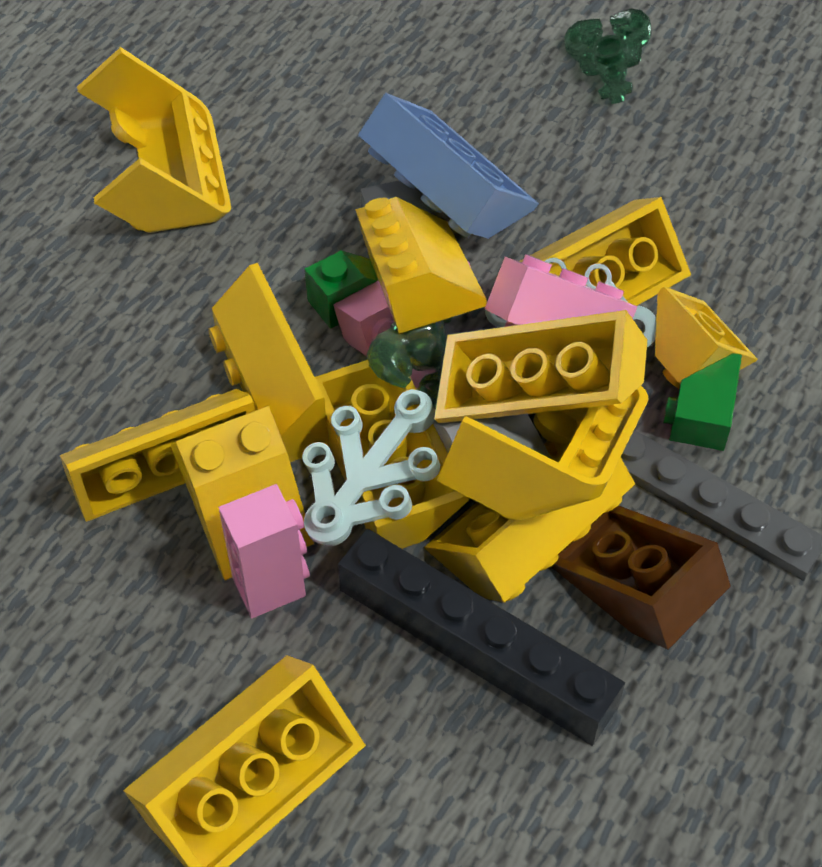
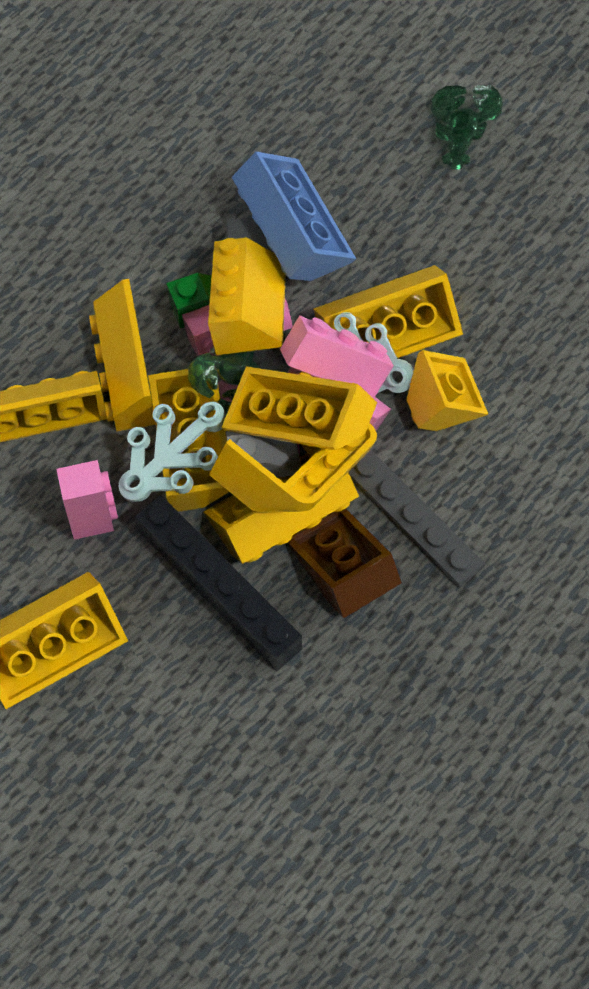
camera: 15 degrees right, 10 degrees up
(179, 161) = (98, 154): yellow windscreen -> none
(231, 464) = (82, 434): yellow slope -> none
(705, 405) = (432, 444): green slope -> none

